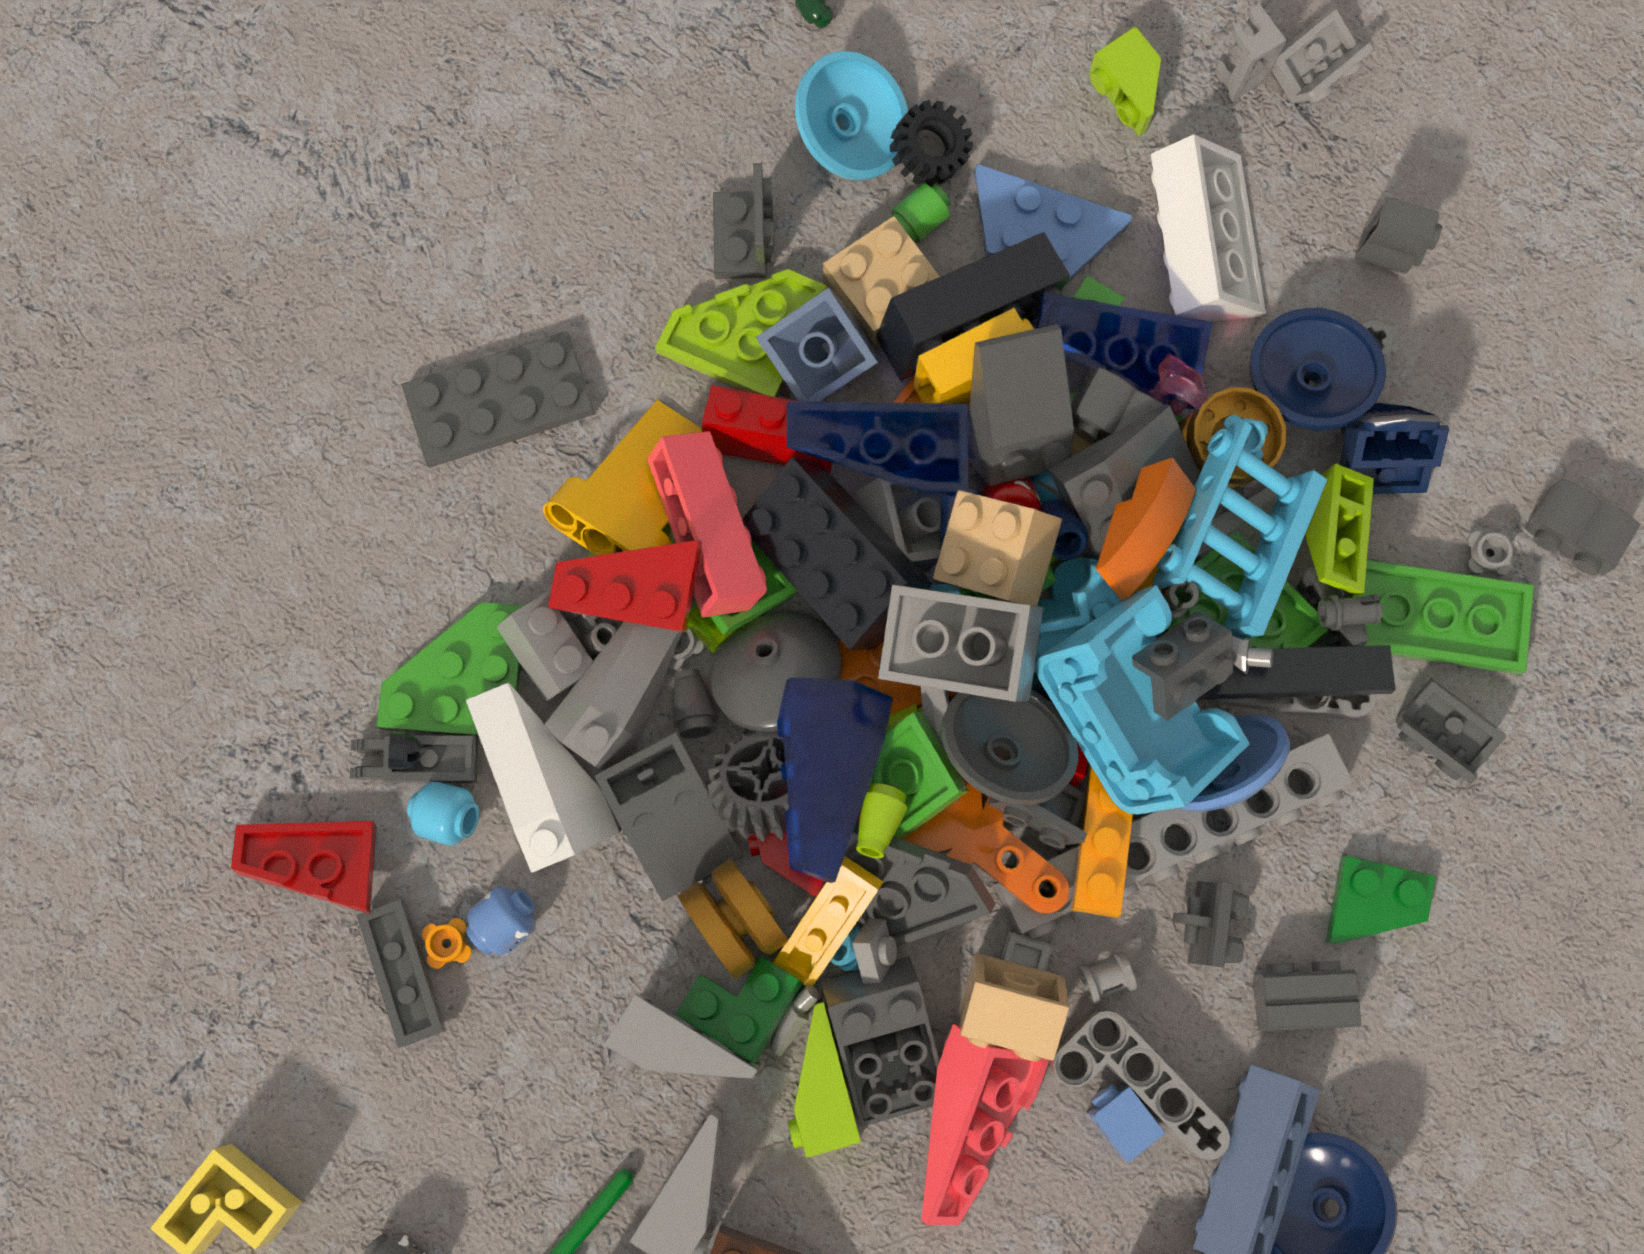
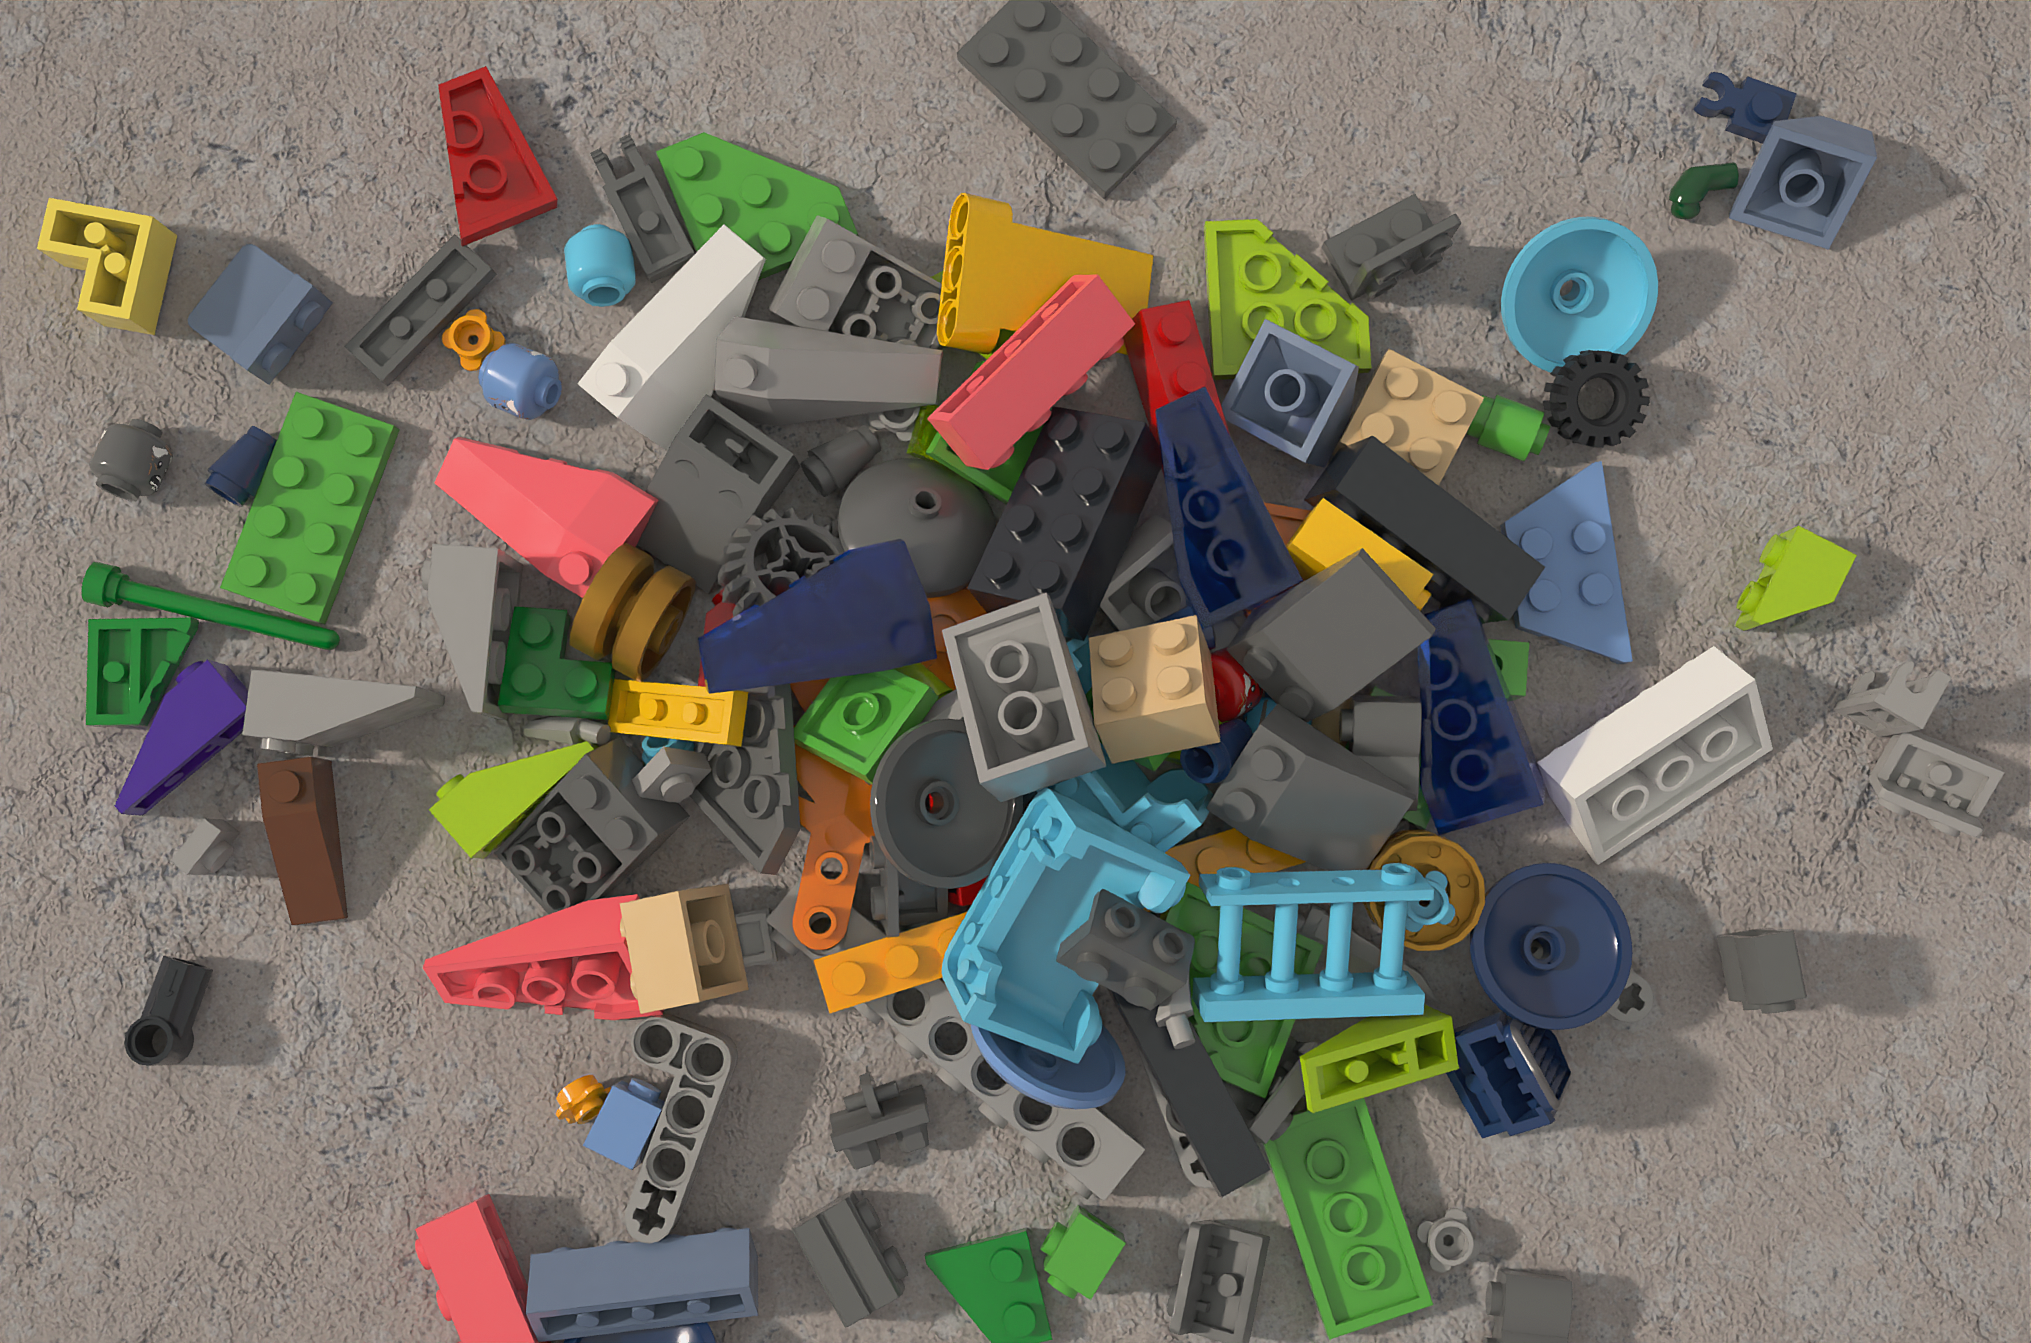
camera: 65 degrees right, 5 degrees up
(332, 1105) = (258, 312): none -> sand blue bracket
(403, 751) = (639, 188): black hinge -> none
(450, 1180) = (242, 467): none -> dark blue cone
(511, 1142) = (310, 508): none -> bright green plate
(622, 944) = (547, 510): none -> coral wedge
(631, 586) = (915, 325): red wing -> none
(880, 819) = (800, 708): lime cone -> none
(1089, 1149) = (581, 1100): none -> light orange plate
(1107, 978) = (768, 1034): light grey bush -> none
(1145, 526) = (1255, 834): orange slope -> none
(1181, 381) = (1454, 803): clear pink tile -> none
(1186, 595) = (1190, 898): dark grey pin -> none
(1349, 611) = (1285, 1106): dark grey pin -> none
(1381, 822) = (1080, 1253): none -> bright green brick

